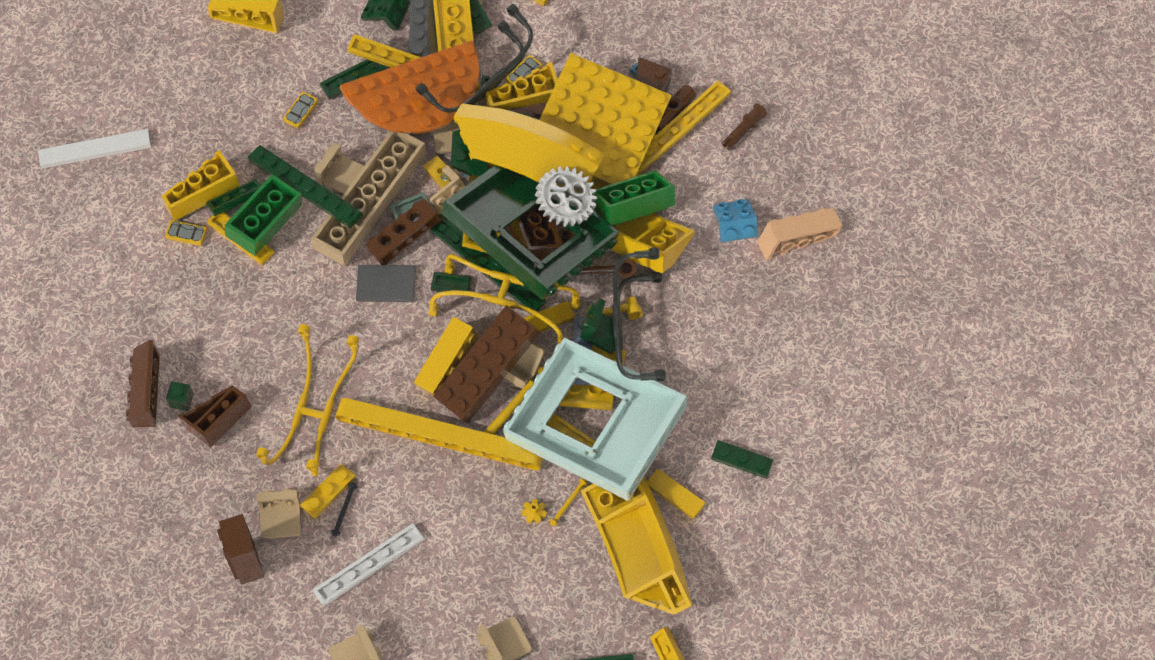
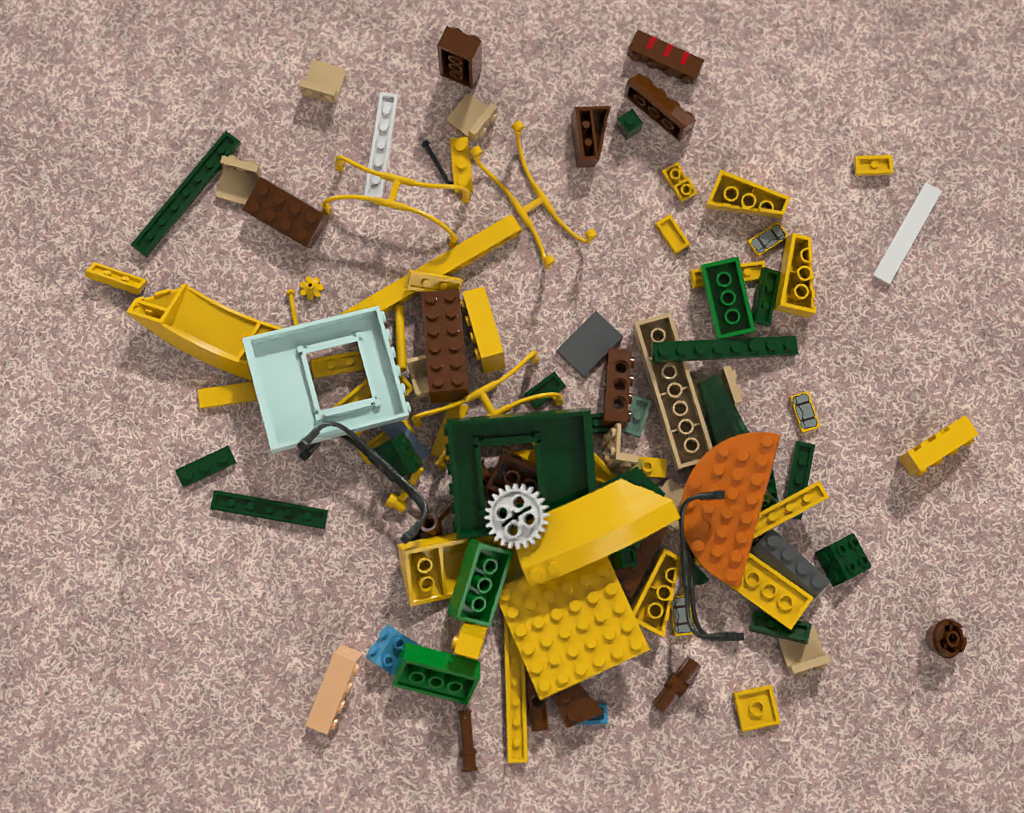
camera: 130 degrees right, 15 degrees up
(57, 208) = (873, 165): none -> yellow plate
(95, 418) = (665, 57): none -> reddish brown brick
(169, 272) = (746, 197): none -> yellow wedge
(196, 326) = (678, 182): none -> yellow slope
(243, 298) = (672, 234): none -> yellow tile
(356, 151) = (719, 410): none -> clear green wedge
(397, 441) = (391, 201): none -> yellow bar
(446, 419) = (426, 282): none -> yellow tile
(494, 577) = (286, 212): none -> reddish brown brick
(574, 37) = (676, 685): none -> reddish brown piece
(681, 162) = (470, 640): none -> yellow wedge
(720, 177) = (436, 673): none -> green slope
(726, 388) = (269, 509): none -> dark green tile

